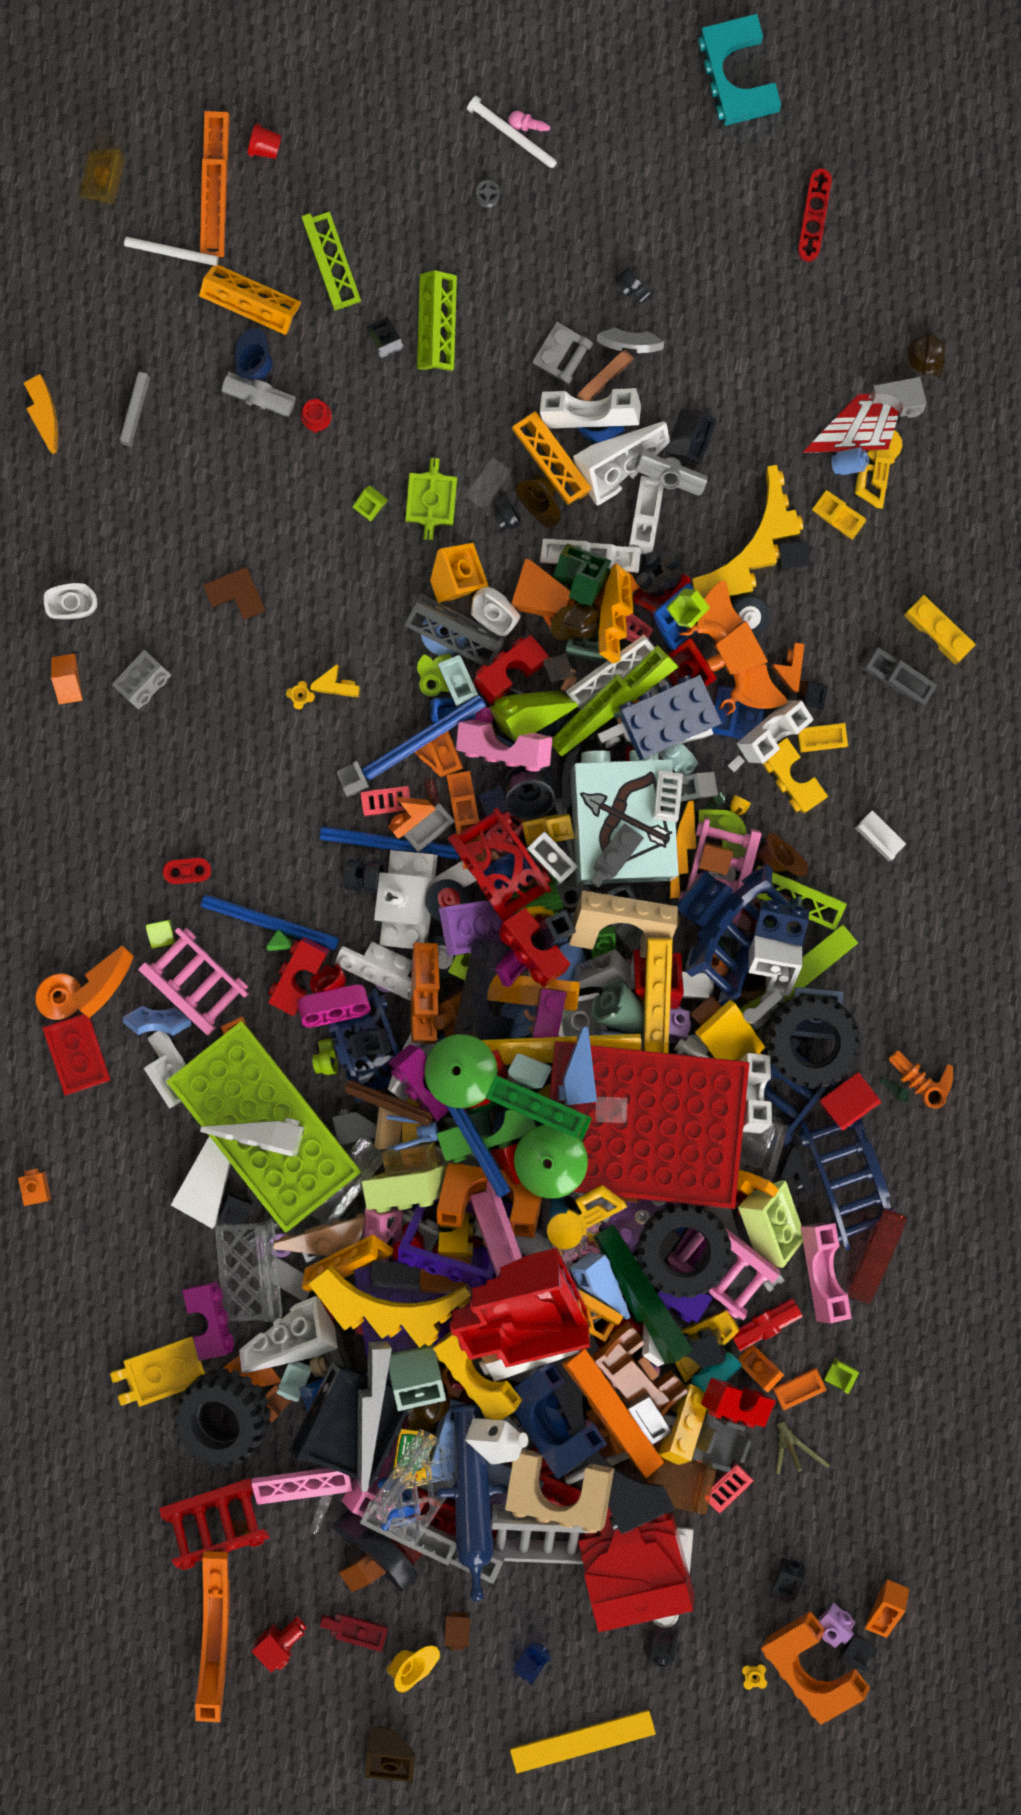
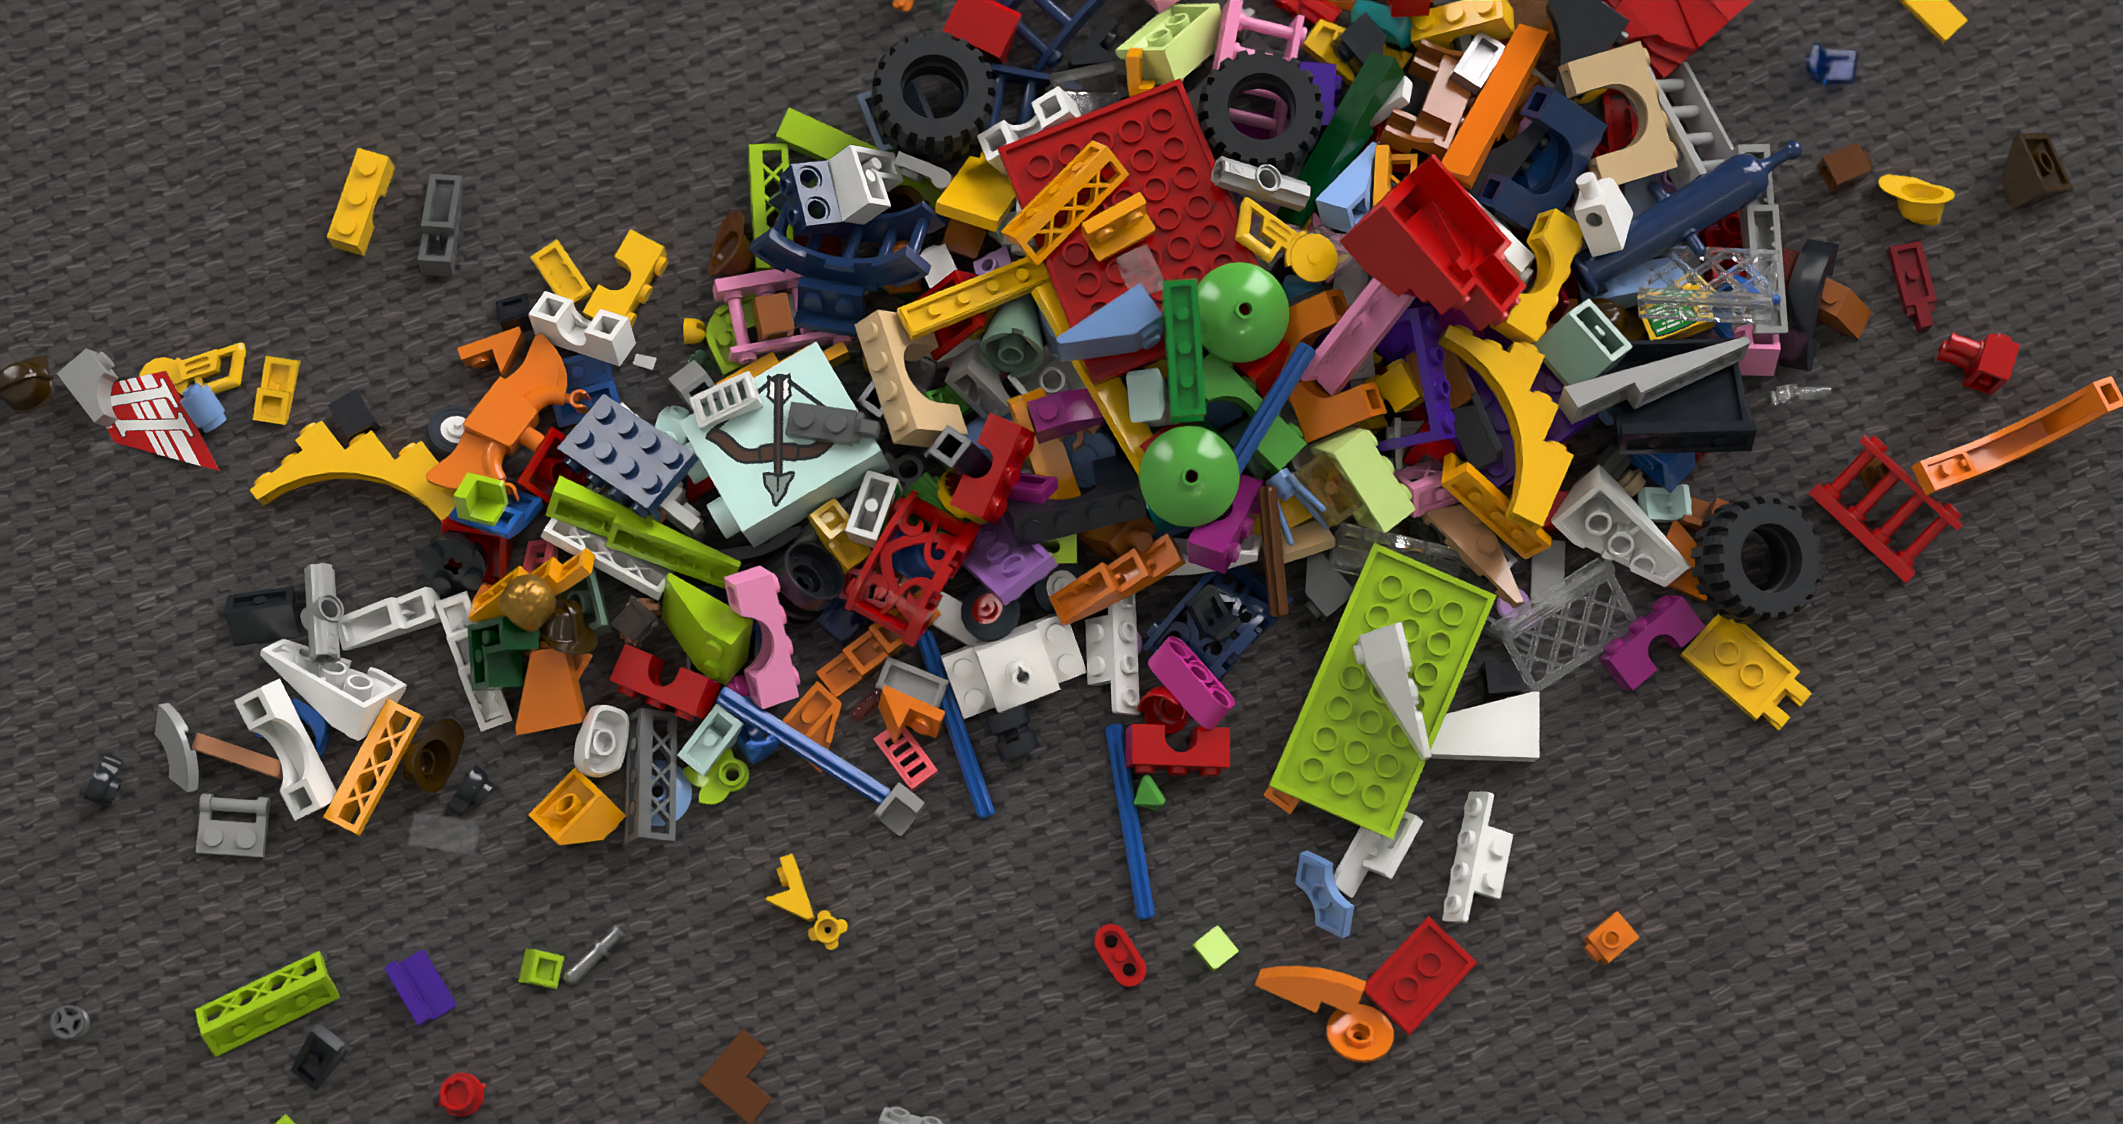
camera: 115 degrees left, 10 degrees down
(128, 1132) = (1479, 859): none -> white bracket
(188, 1005) = (1282, 866): bright pink fence -> none
(300, 1485) = (1784, 430): bright pink fence -> none
(322, 1061) = (1264, 666): lime piece -> none
(362, 545) = (590, 959): none -> flat silver piece
(396, 421) = (420, 987): none -> dark purple panel
(431, 499) = (498, 893): lime plate -> none
(600, 603) = (528, 601): none -> pearl gold hair
(640, 1213) = (1260, 183): none -> light grey piece
(648, 1111) = (1118, 227): none -> light orange bracket
(649, 1368) = (1418, 94): nougat tile -> none
(691, 1085) = (1058, 194): none -> light orange fence
(880, 835) = (647, 150): white panel -> none

